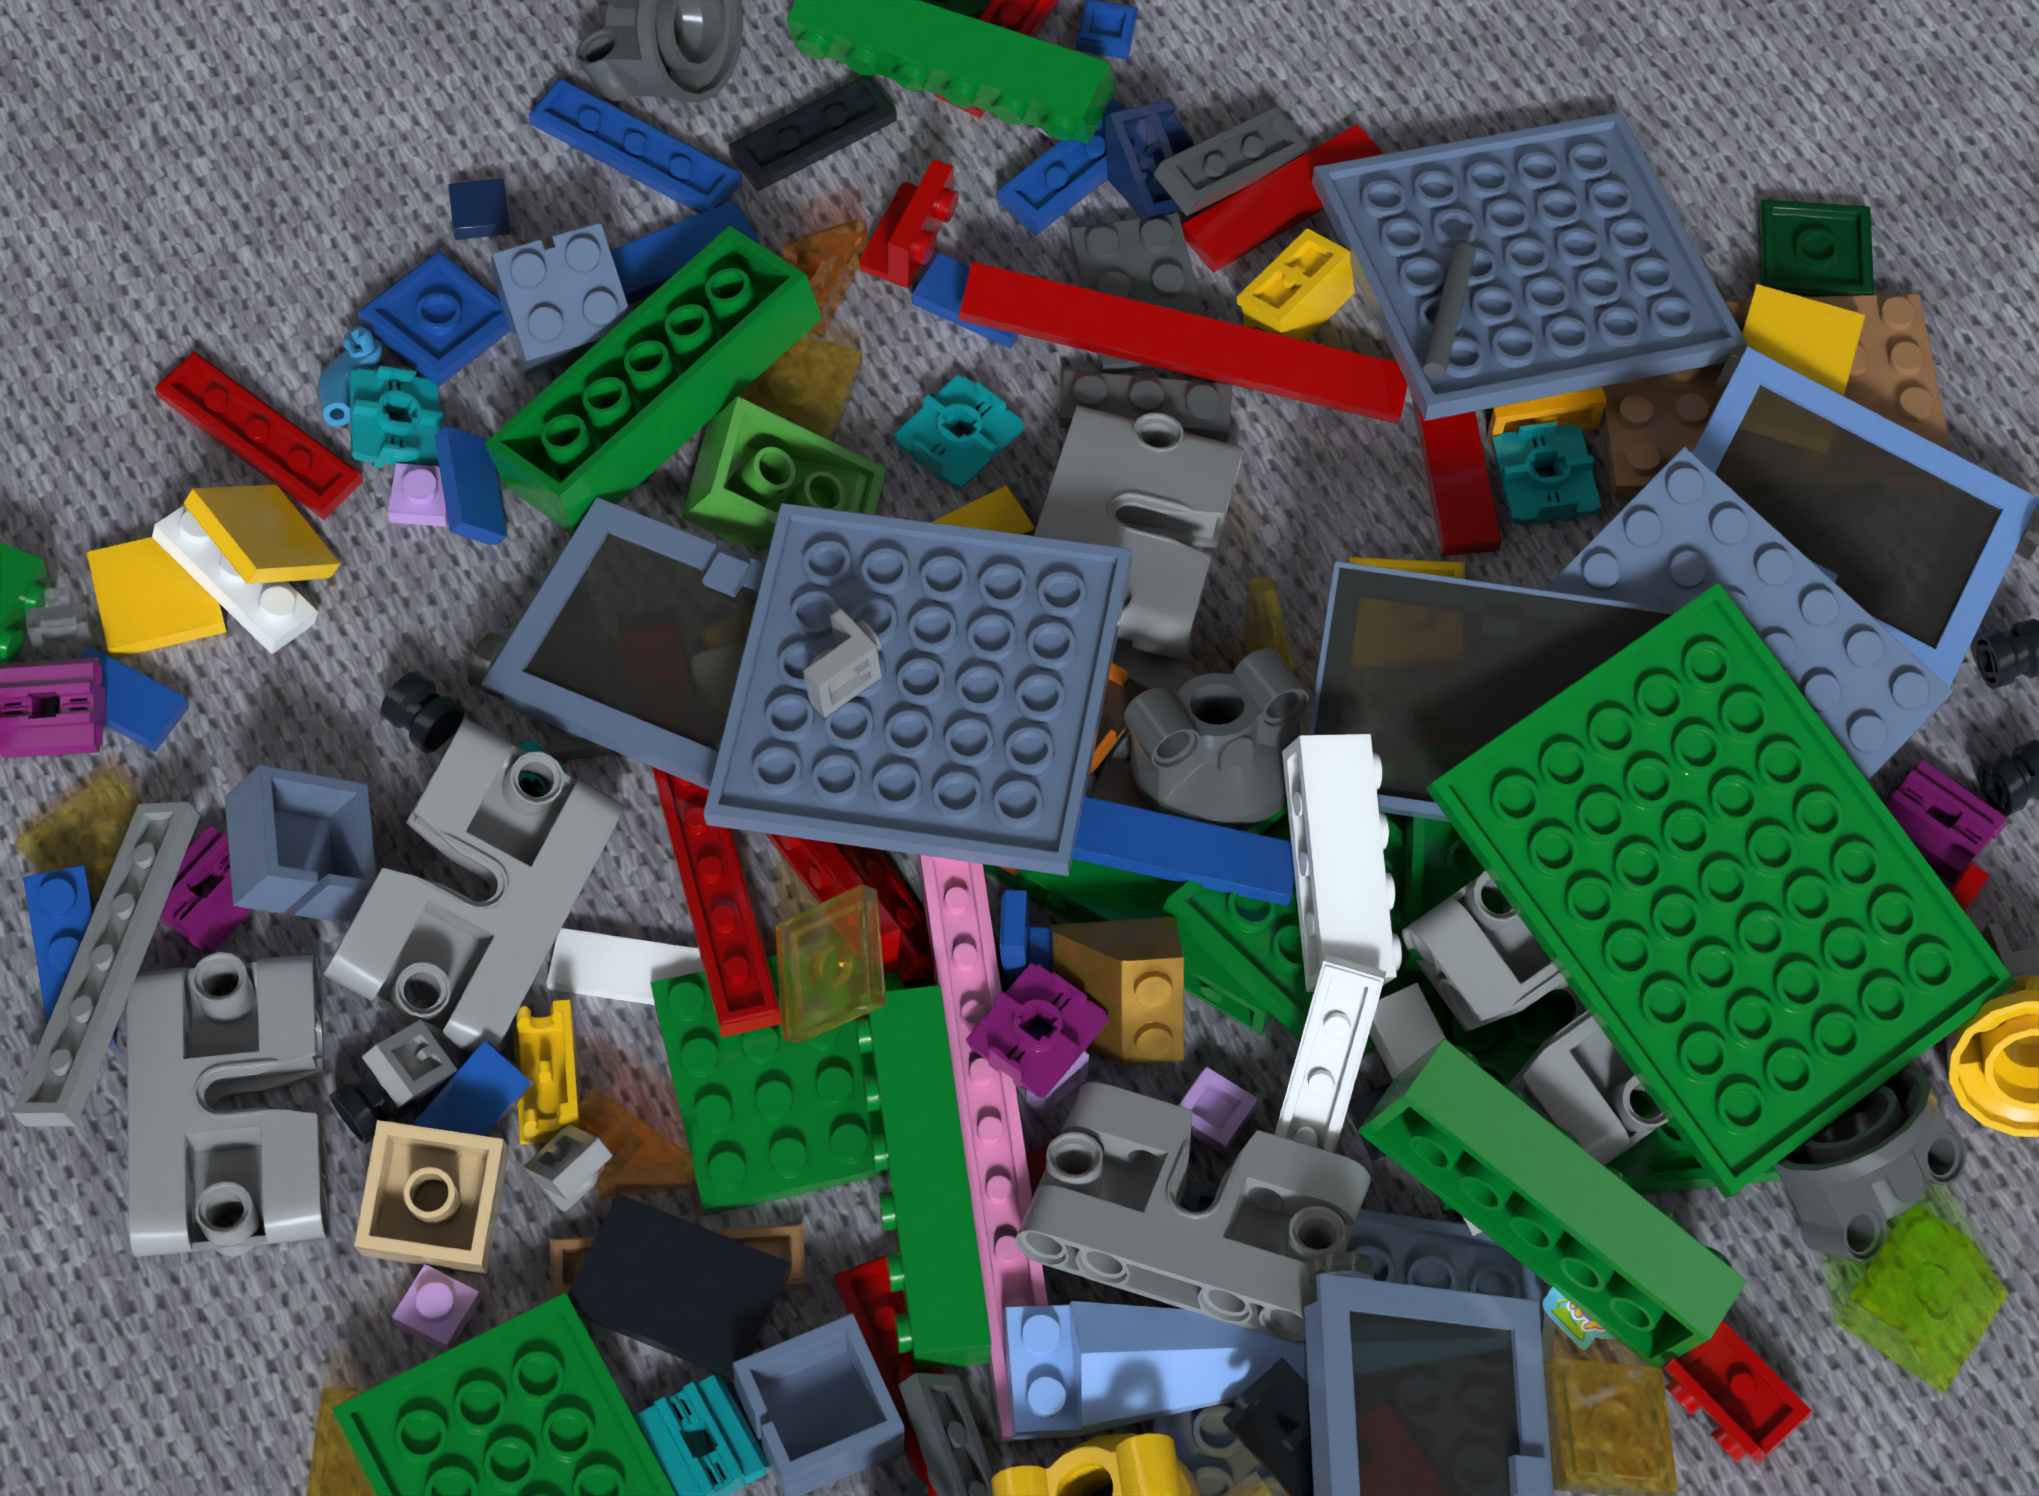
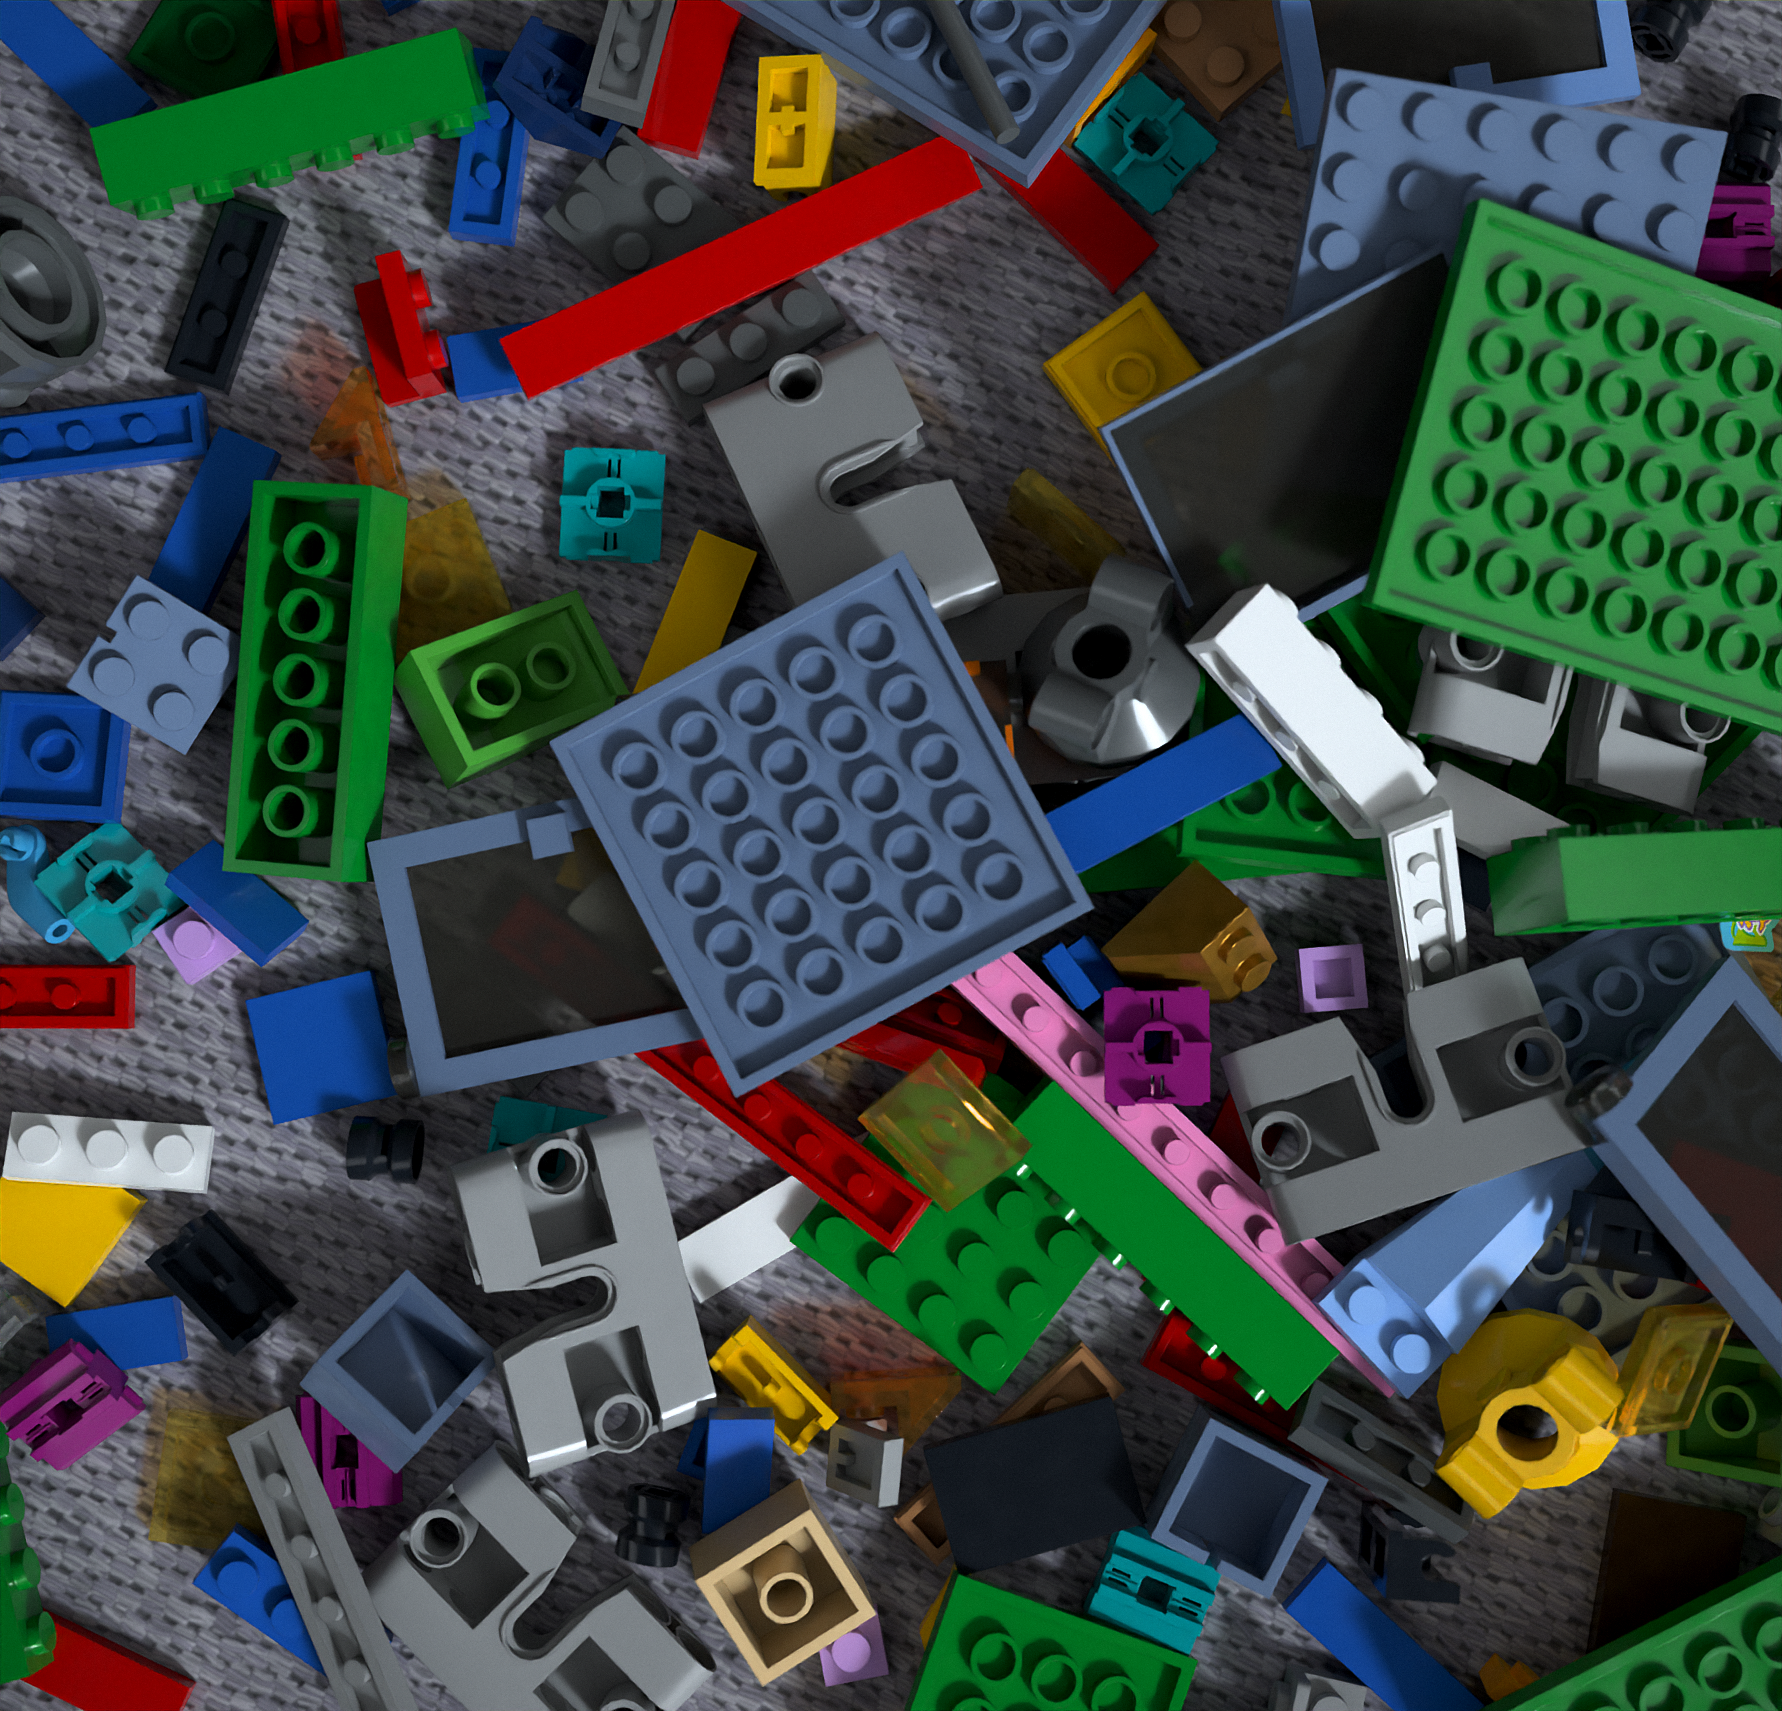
camera: 40 degrees left, 25 degrees up
(229, 713) = (222, 1282): none -> black hinge
(261, 533) = (100, 1104): yellow tile -> none
(409, 1064) = (667, 1493): light grey bracket -> none
(438, 620) = (322, 1046): none -> blue tile
(846, 670) = (752, 886): light grey bracket -> none

